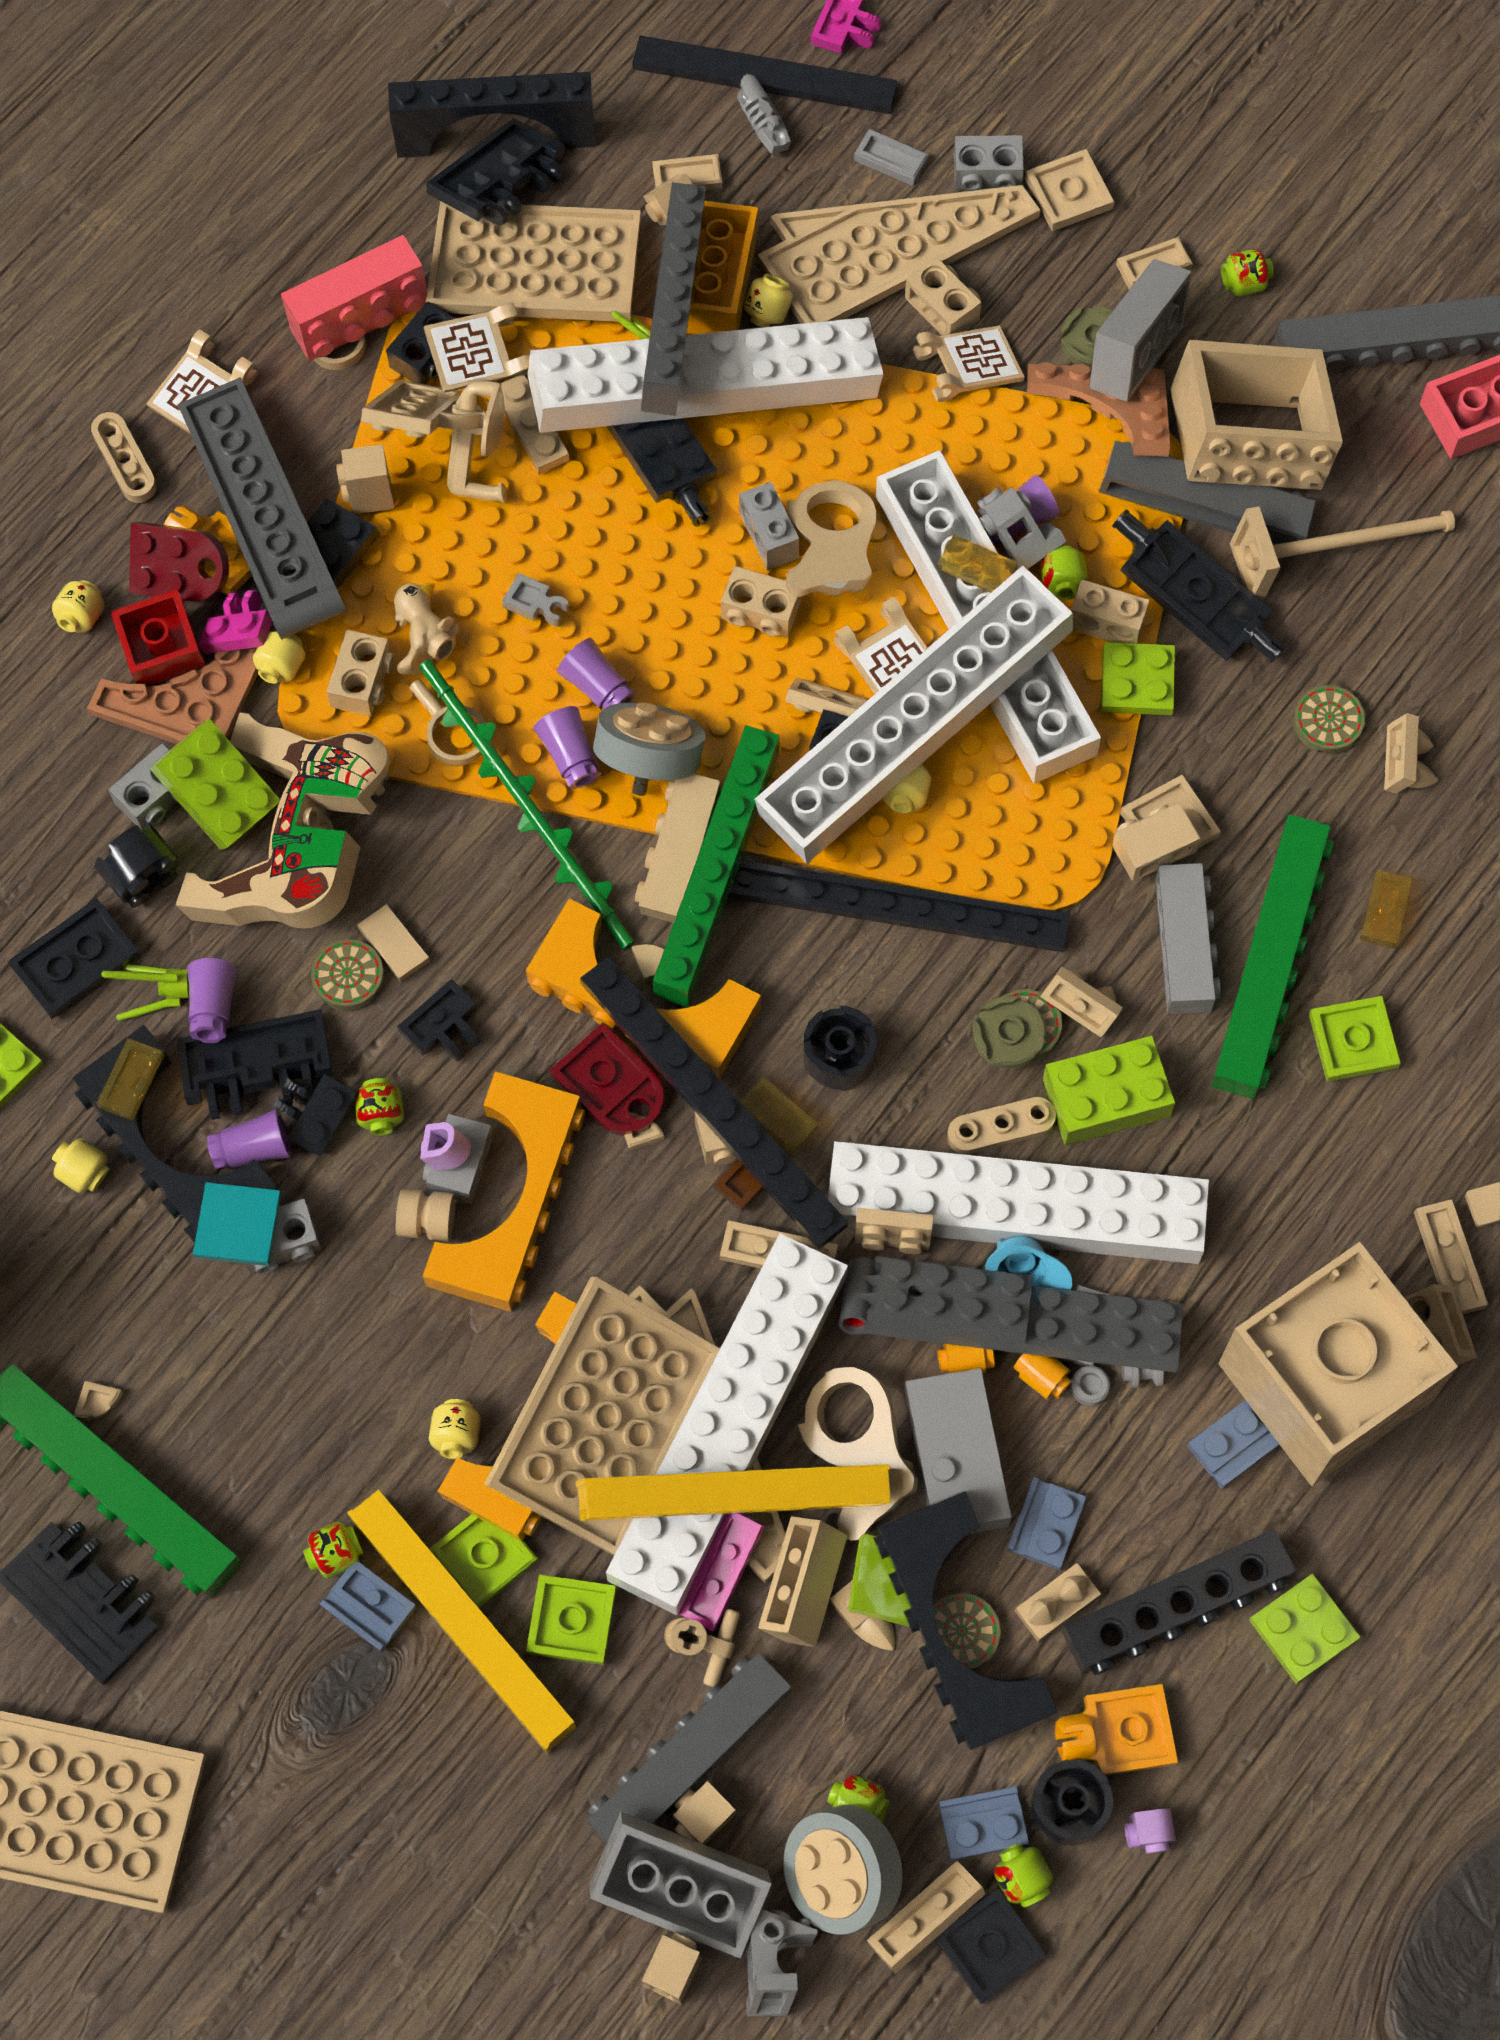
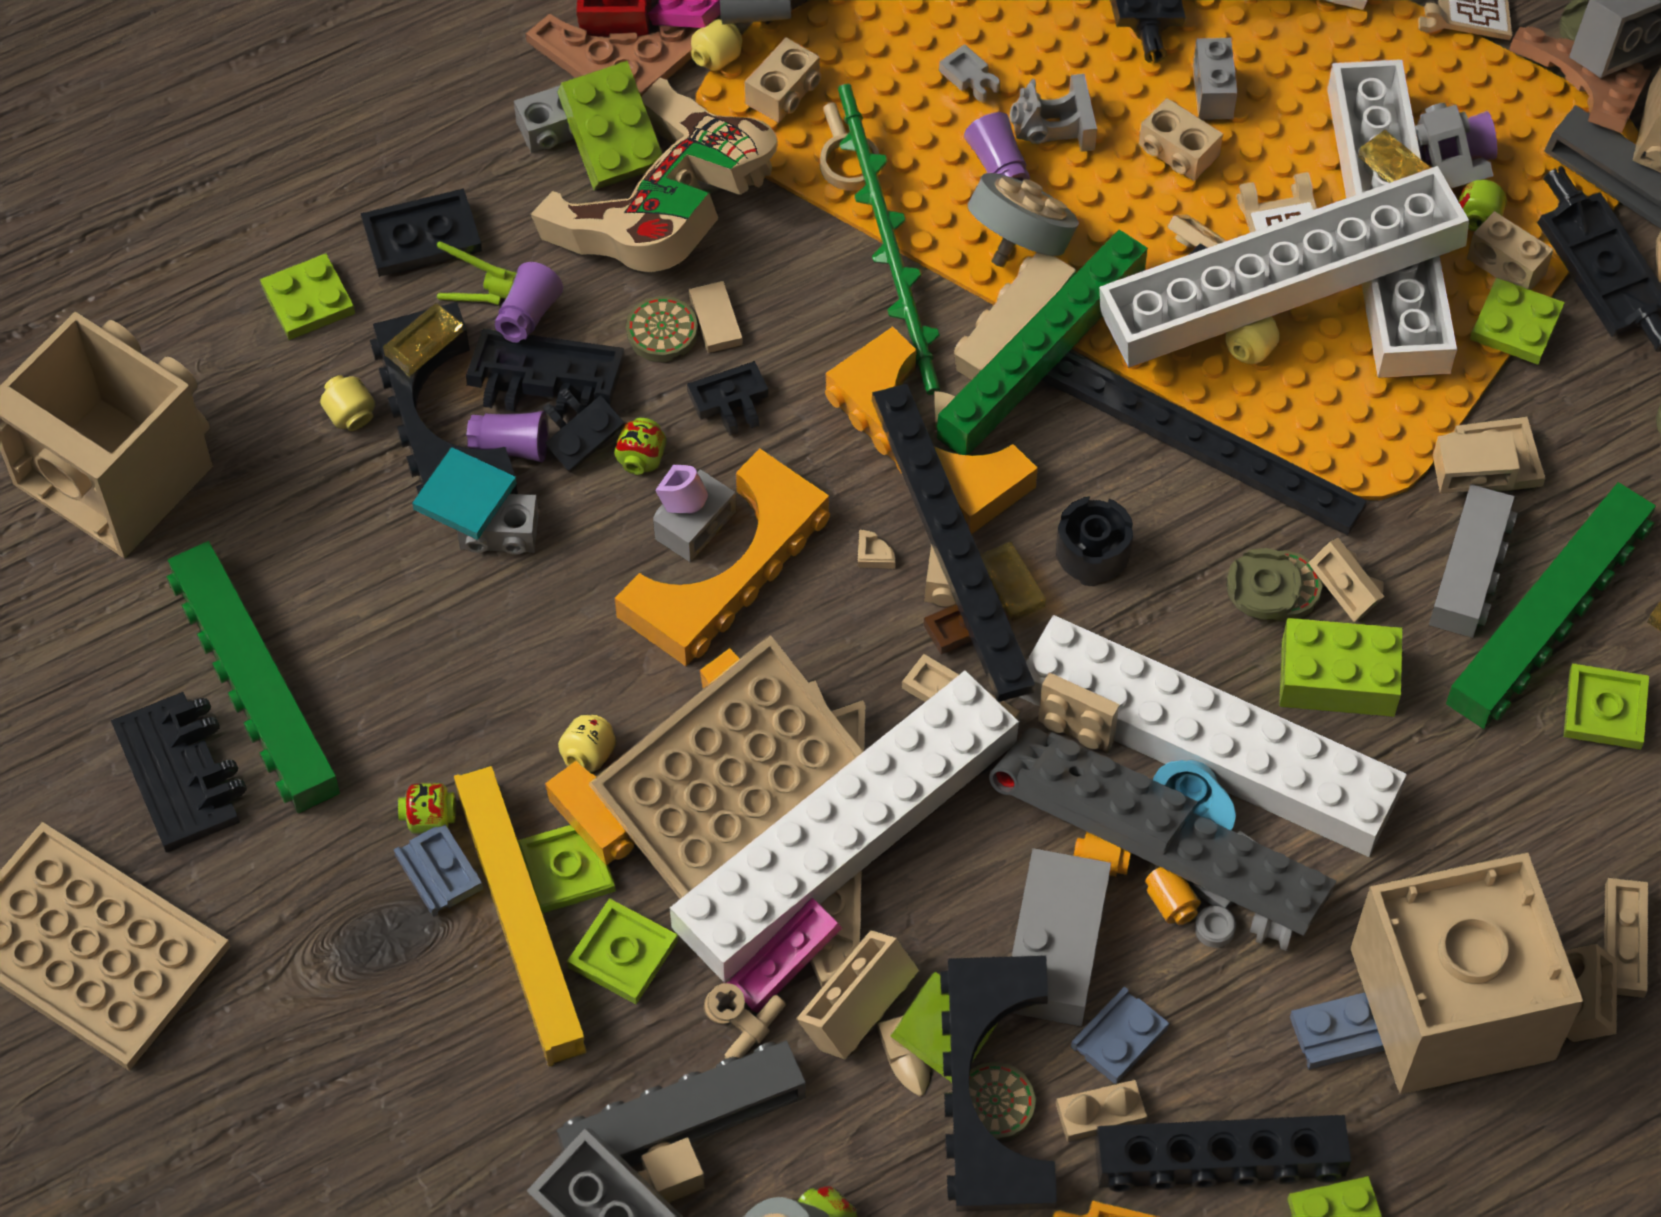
camera: 20 degrees right, 10 degrees down
(96, 1401) = (271, 606): tan tile -> none
(138, 864) = (512, 170): black brick -> none
(425, 1214) = (638, 548): tan wheel -> none
(428, 633) = (859, 64): tan animal -> none
(568, 746) = (947, 198): medium lavender plant -> none
(610, 1082) = (863, 498): dark red plate -> none
(649, 607) = (1073, 111): none -> light grey tile
(733, 1492) = (821, 875): yellow tile -> none
(836, 558) = (1263, 121): tan animal -> none
(874, 1448) = (968, 915): tan animal -> none
(989, 1136) = (1239, 674): tan plate -> none

